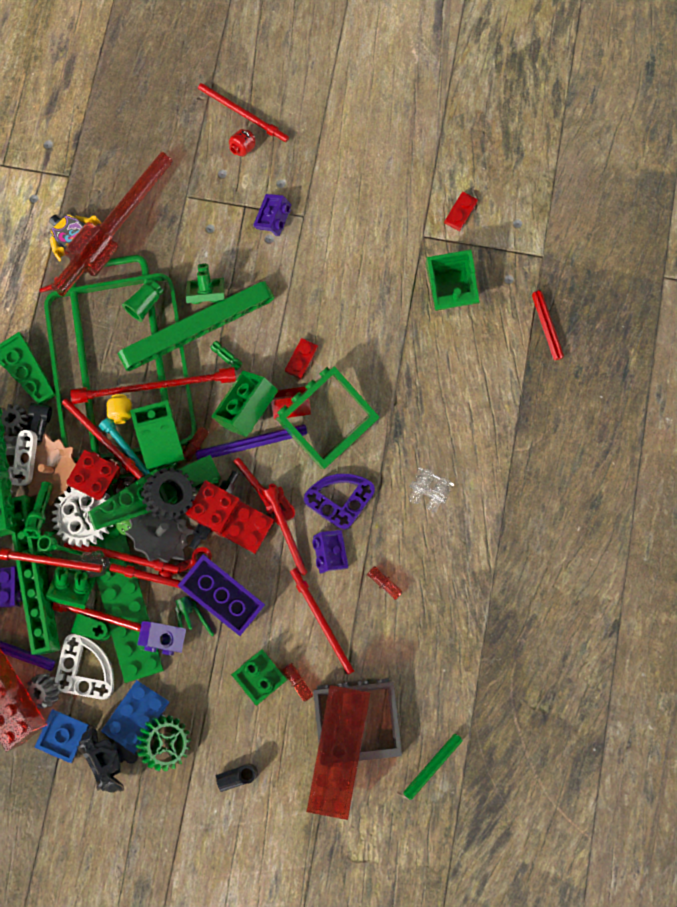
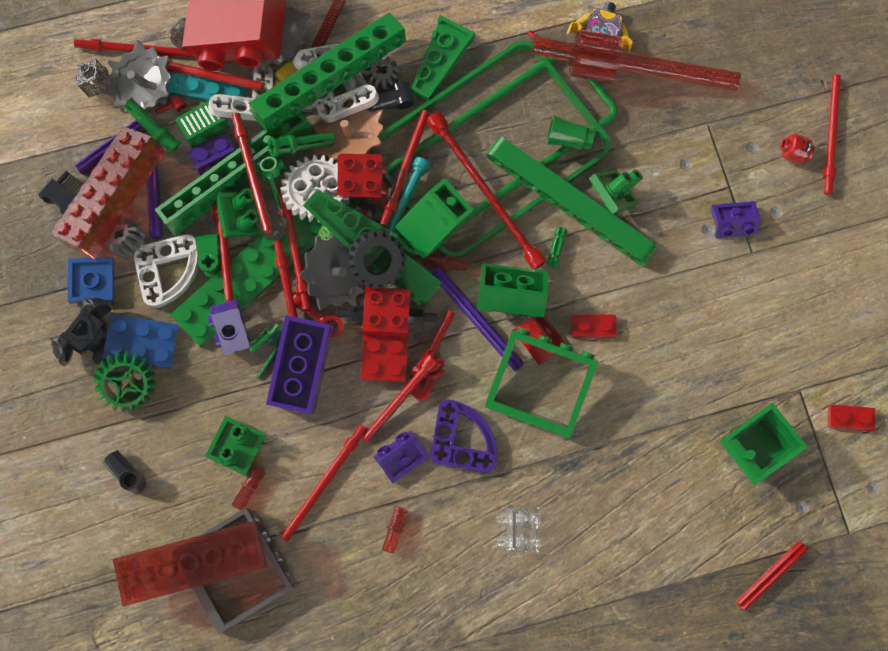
camera: 60 degrees right, 0 degrees up
(119, 408) = (442, 167): yellow head -> none

